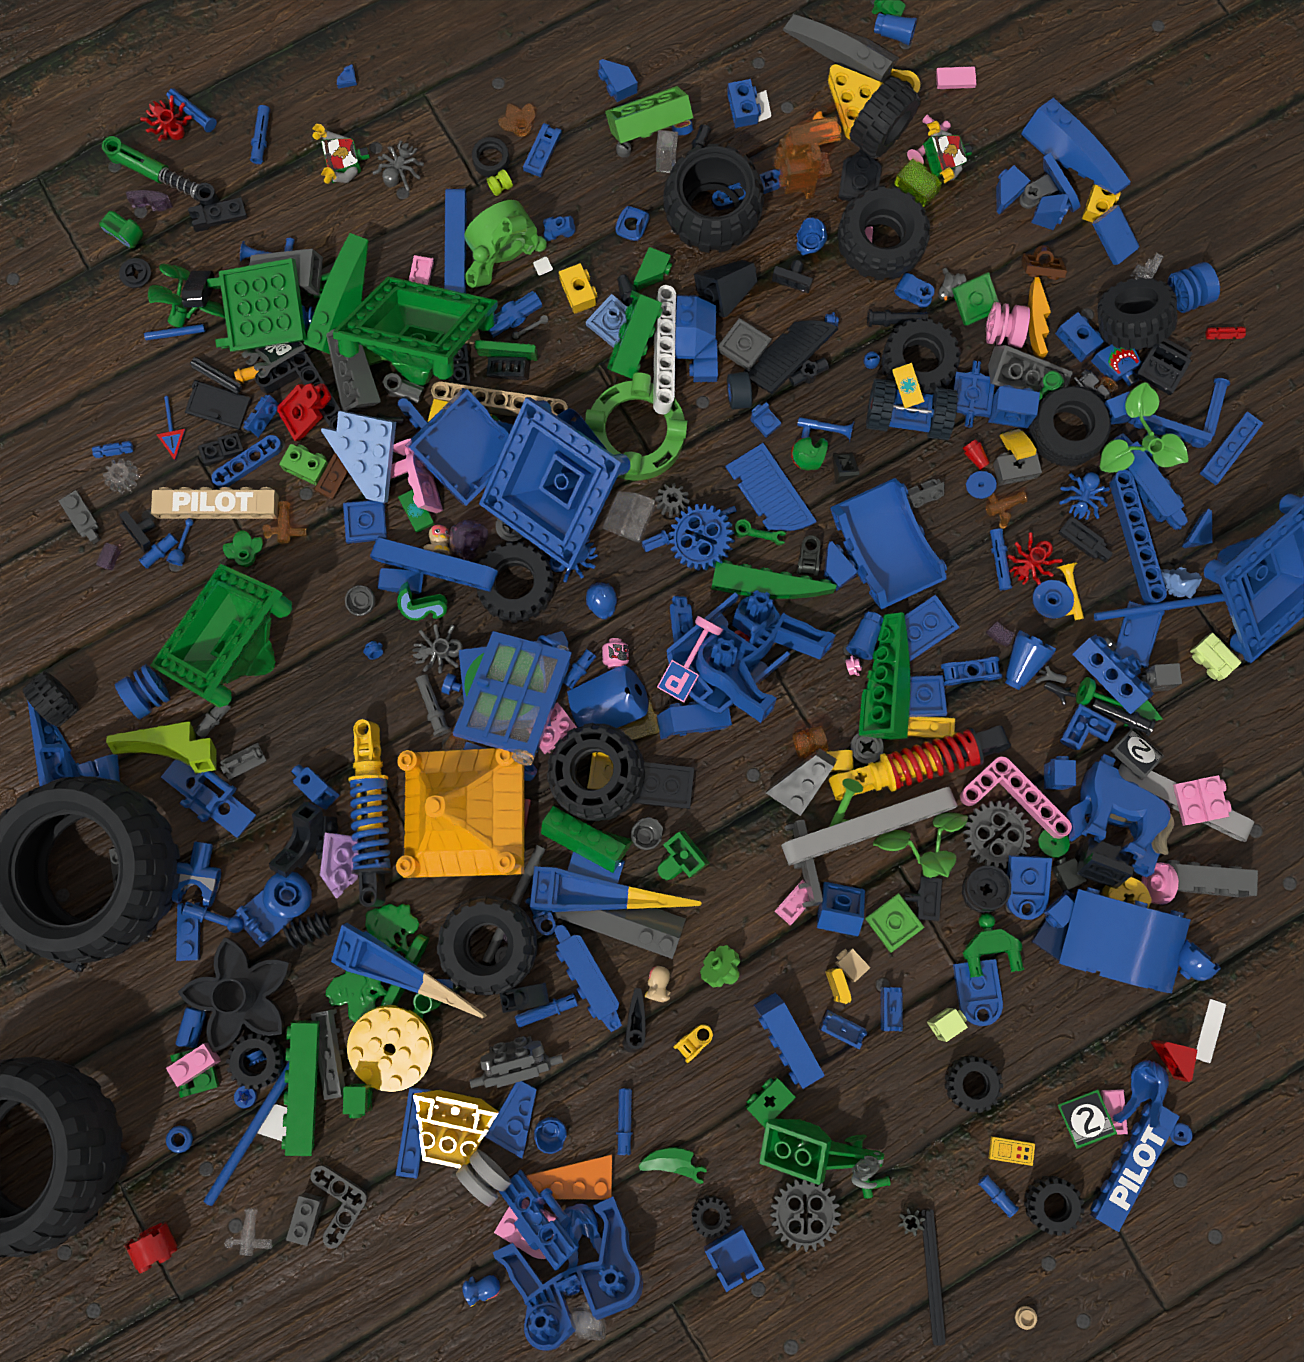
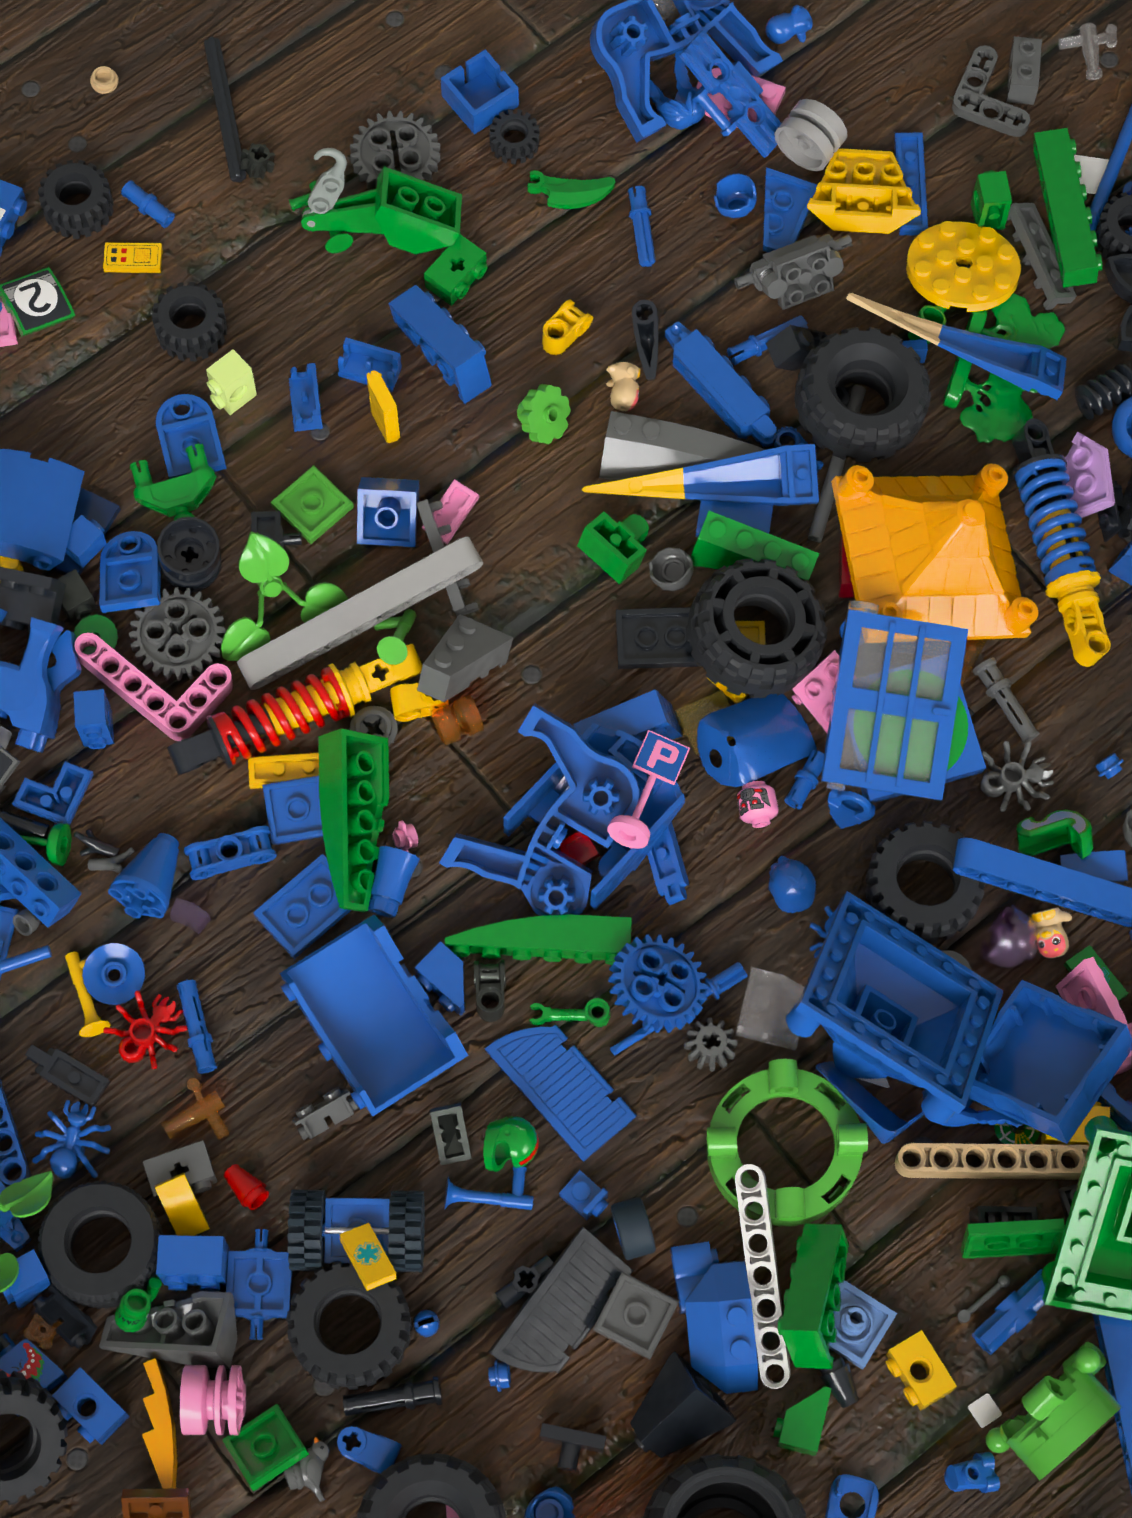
camera: 175 degrees right, 10 degrees down
(450, 684) = (987, 731): blue tile -> none
(577, 1181) = (685, 156): orange wing -> none
(851, 964) = (365, 443): tan brick -> none
(981, 484) = (234, 1139): blue piece -> none

